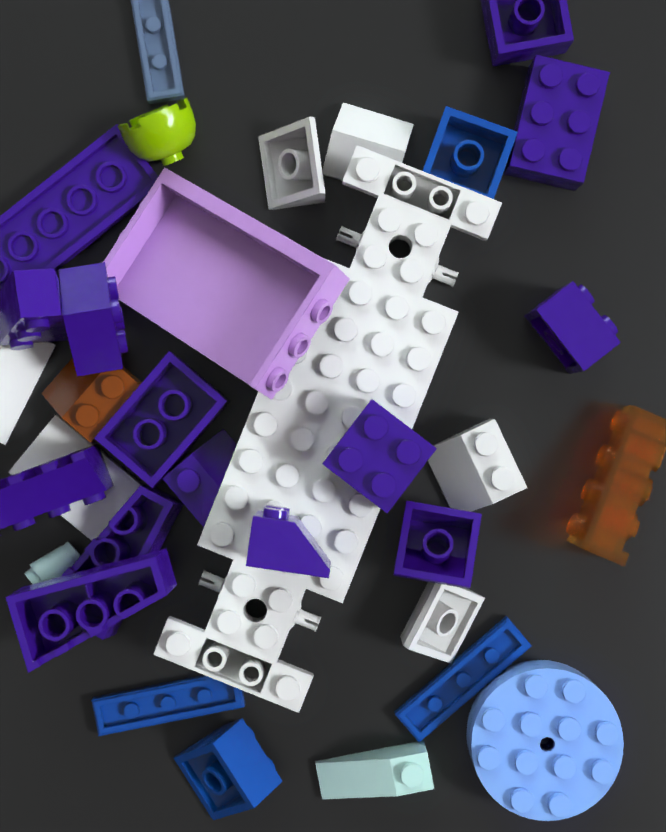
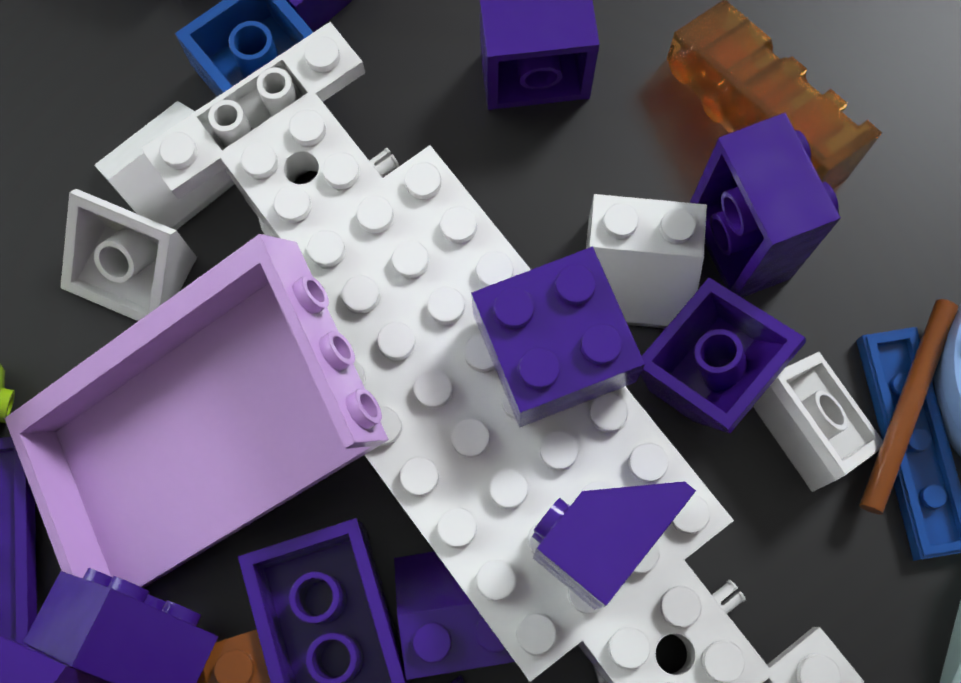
camera: 55 degrees left, 15 degrees down
(479, 664) = (908, 407): none -> dark orange bar
(540, 521) = (763, 205): none -> dark purple brick

